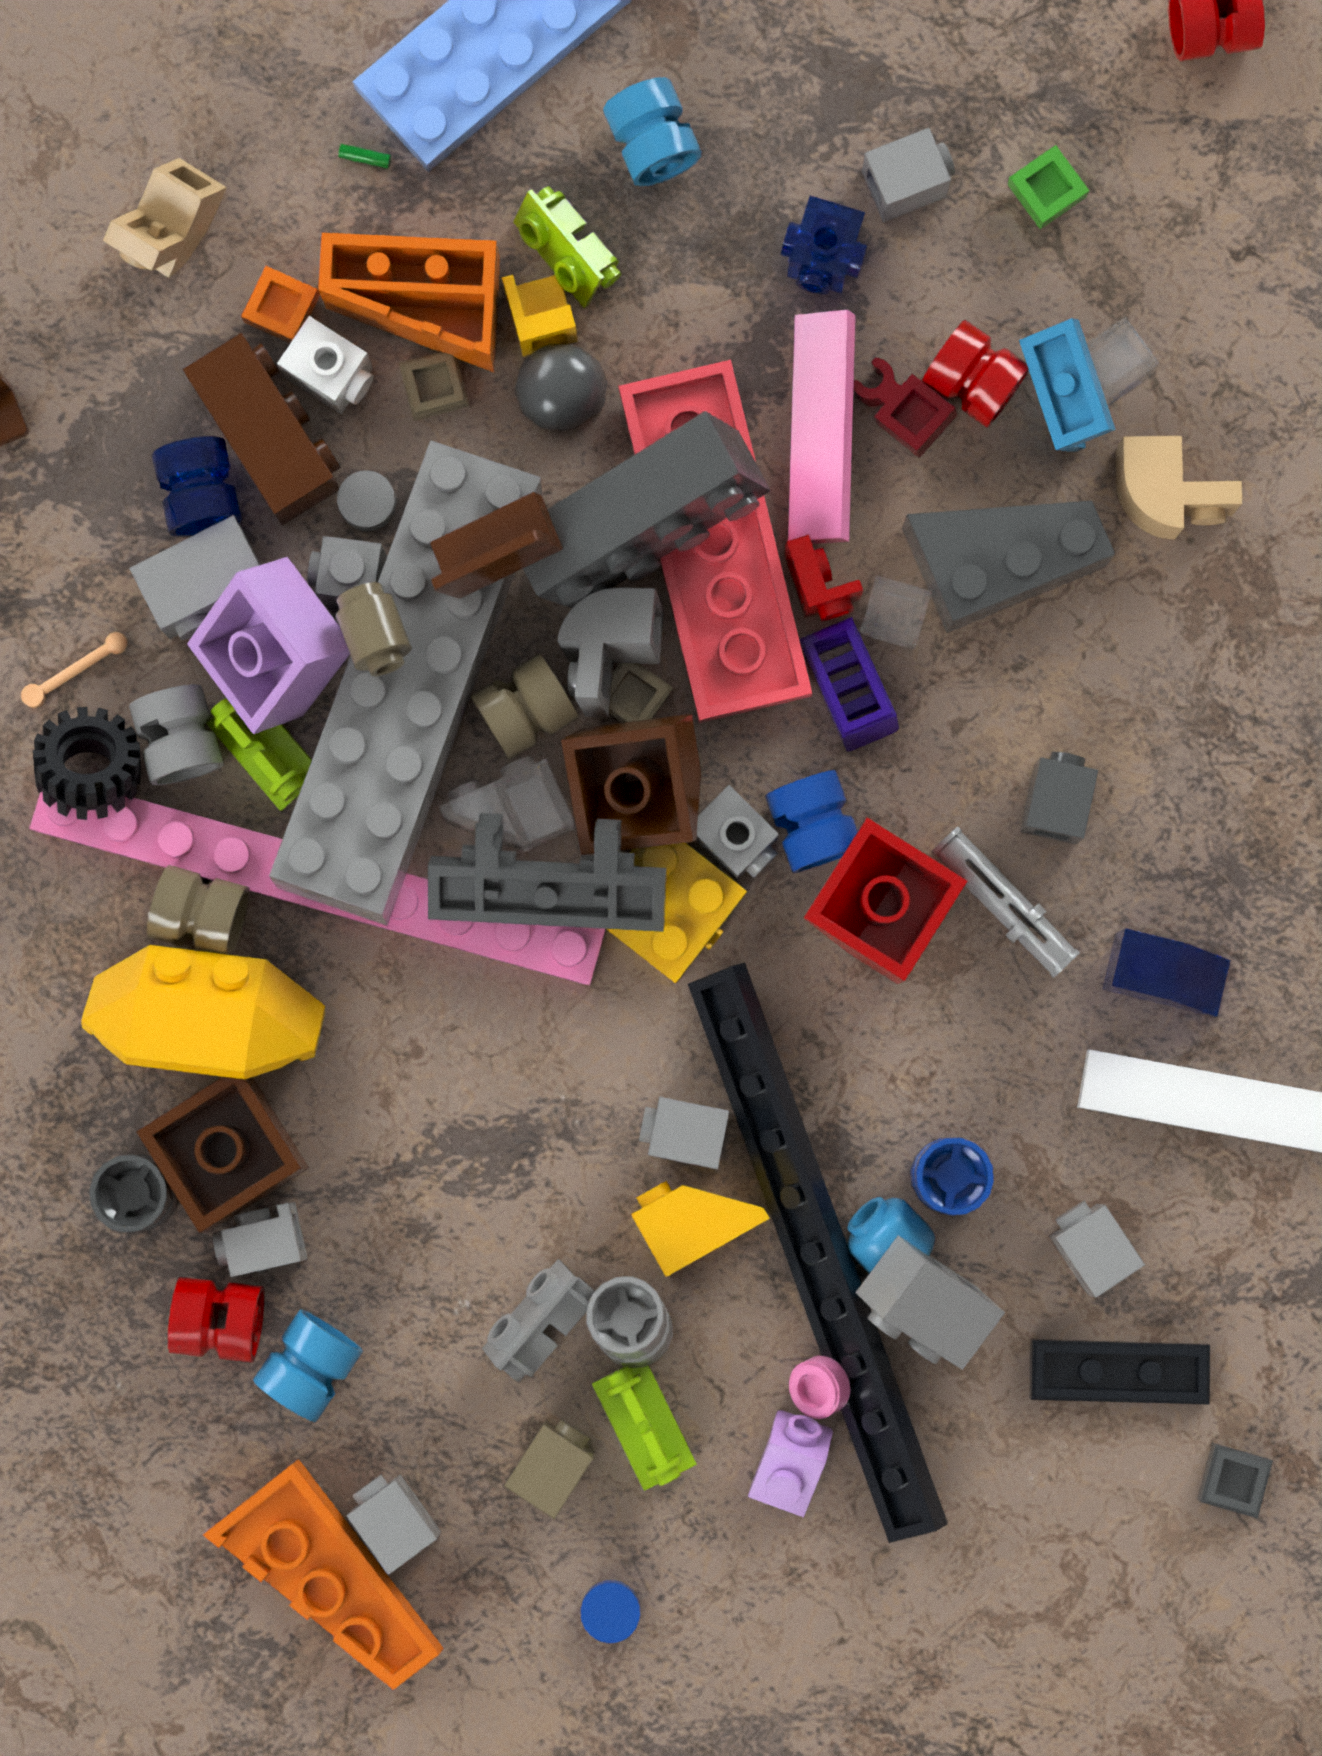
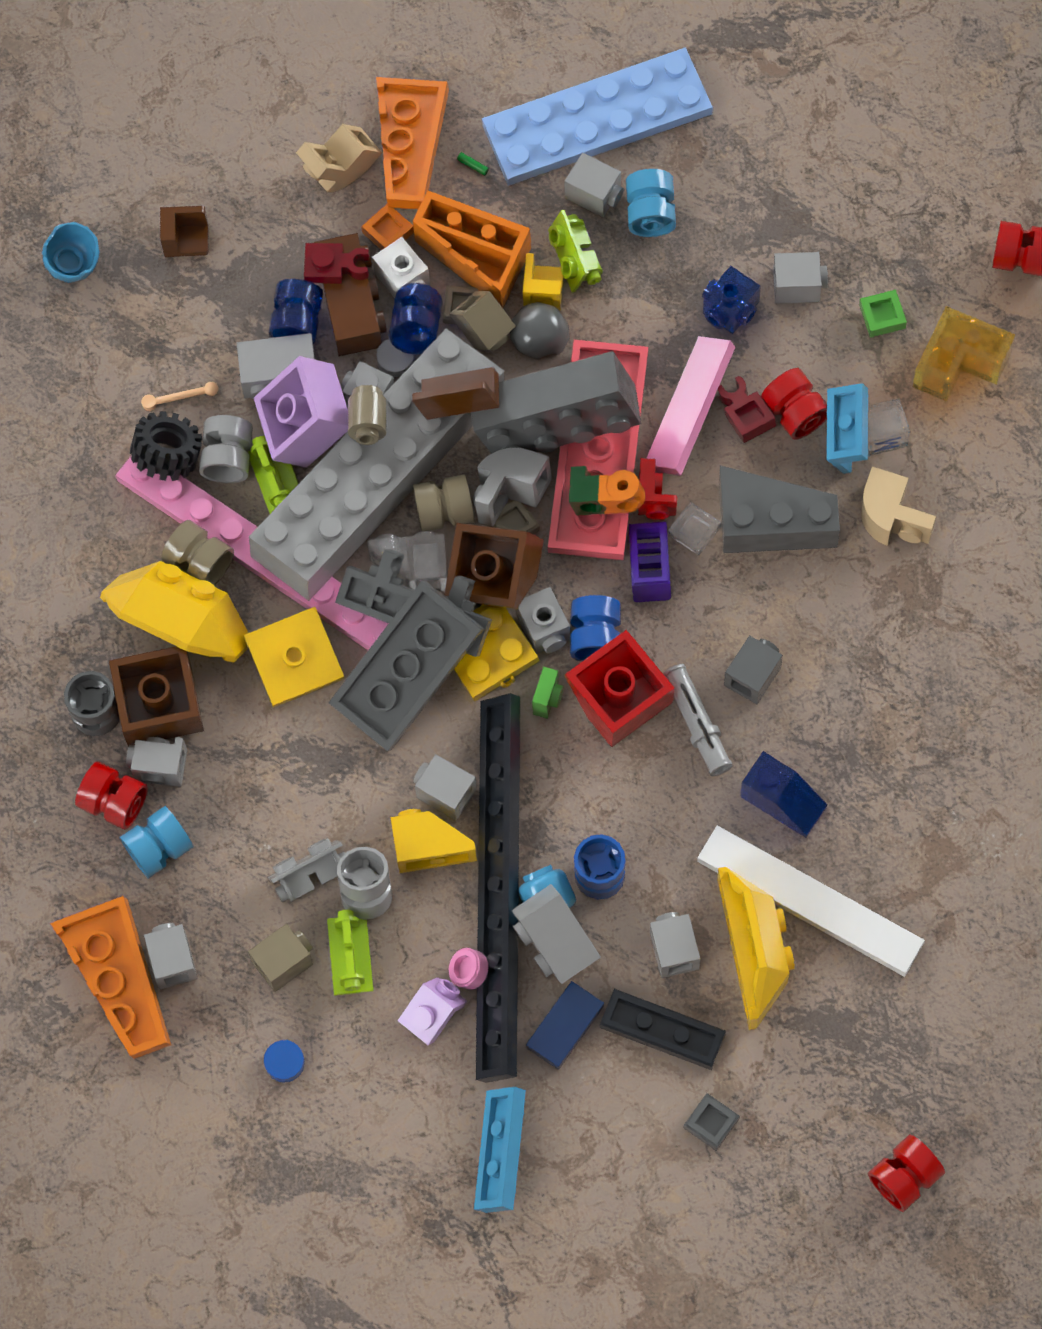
camera: 20 degrees right, 15 degrees down
(216, 398) = (328, 263): none -> dark red plate
(256, 140) = (410, 134): none -> orange wing
(377, 437) = (415, 318): none -> clear blue wheel
(396, 1014) = (294, 657): none -> yellow plate
(476, 404) = (483, 321): none -> dark tan brick
(558, 131) = (593, 185): none -> light grey brick
(569, 980) = (406, 665): none -> dark grey plate
(774, 612) = (604, 493): none -> leg
(781, 940) = (547, 693): none -> bright green plate
(962, 1634) = (499, 1150): none -> dark azure plate
(982, 1417) = (565, 1025): none -> dark blue tile
(1185, 200) = (958, 346): none -> clear yellow brick
(1210, 1209) = (756, 943): none -> yellow wedge

